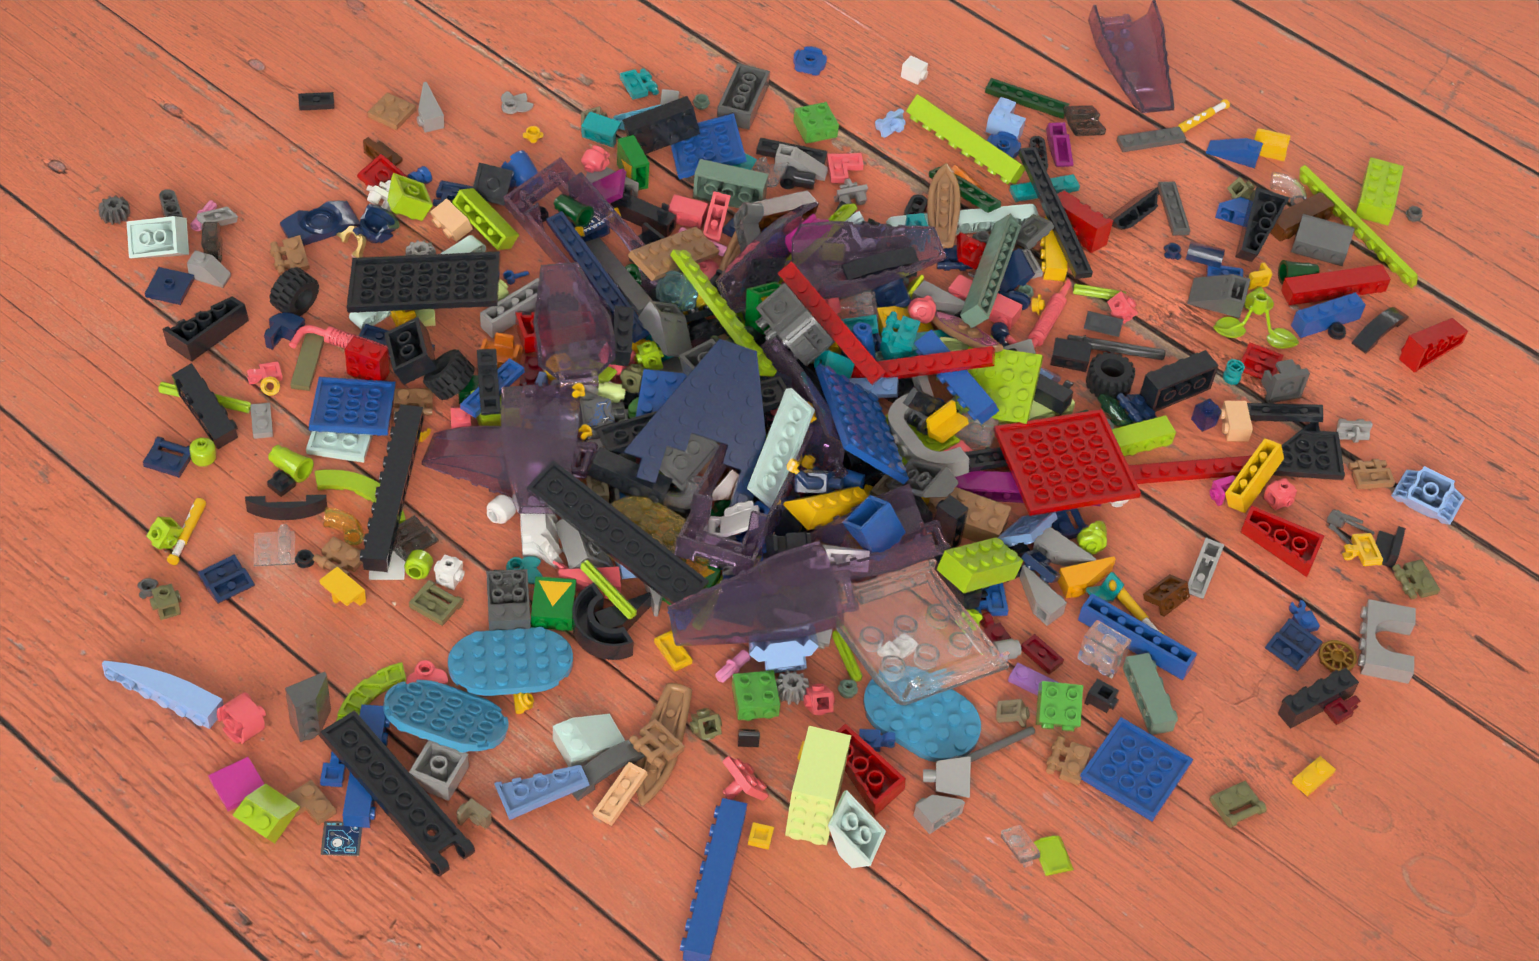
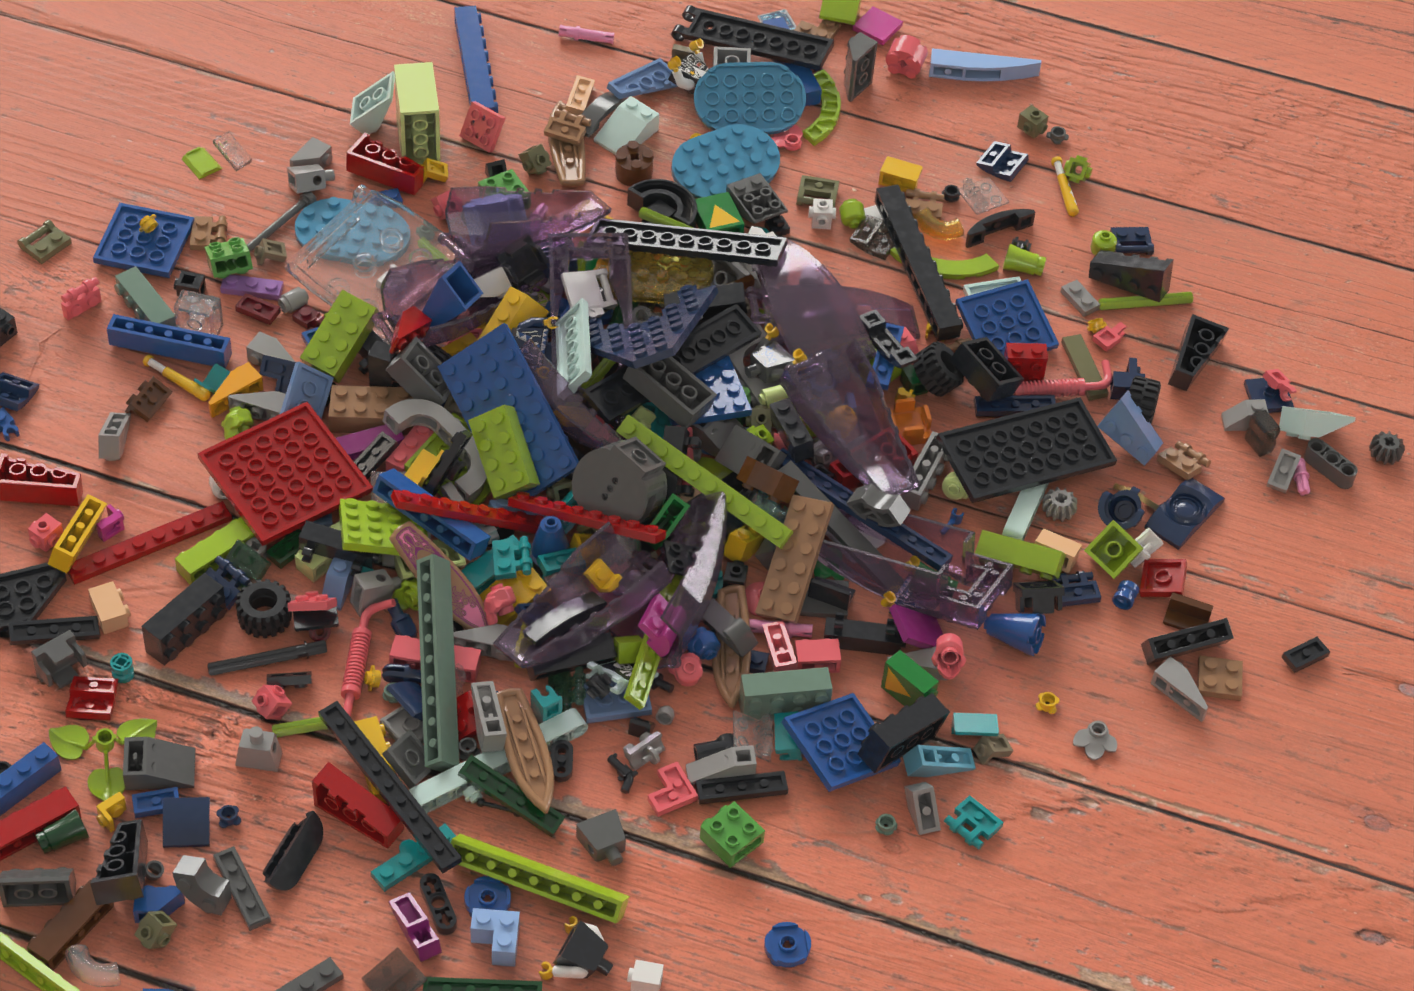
camera: 160 degrees right, 0 degrees up
(159, 278) = (1278, 380): none -> coral plate
(326, 272) = (1131, 430): none -> medium blue wedge
(401, 129) = (1187, 641): none -> black brick
(487, 775) = (690, 69): none -> torso
(565, 880) = (586, 34): none -> bright pink pin
(589, 257) = (878, 506): none -> dark grey brick
(605, 688) = (633, 163): none -> reddish brown brick
(669, 290) = (767, 479): none -> reddish brown brick
(744, 94) = (838, 838): dark grey brick -> none
(760, 835) = (452, 103): yellow plate -> none
(779, 206) = (711, 685): brick -> none
(823, 213) = (665, 715): none -> light grey hinge
(835, 274) = (602, 577): none -> yellow bracket
(872, 190) = (624, 773): none -> black piece
(877, 397) = (504, 452): none -> lime brick
(893, 122) = (646, 870): light blue hips -> none
(907, 153) = (603, 837): none -> dark grey torso
(925, 516) = (410, 325): none -> red slope
(954, 91) = (580, 953): none -> black torso
(963, 174) = (514, 825): orange plate -> none
(966, 221) = (488, 717): none -> light grey slope
(1076, 357) = (312, 602): none -> coral plate
(1132, 767) = (148, 223): none -> yellow plate
(1143, 277) = (259, 750): none -> light grey torso
(1204, 201) = (202, 885): none -> dark grey brick
(1206, 415) = (144, 600): clear blue brick -> none
(1213, 709) = (80, 298): none -> coral plate
(1234, 232) = (155, 867): none -> dark grey hinge

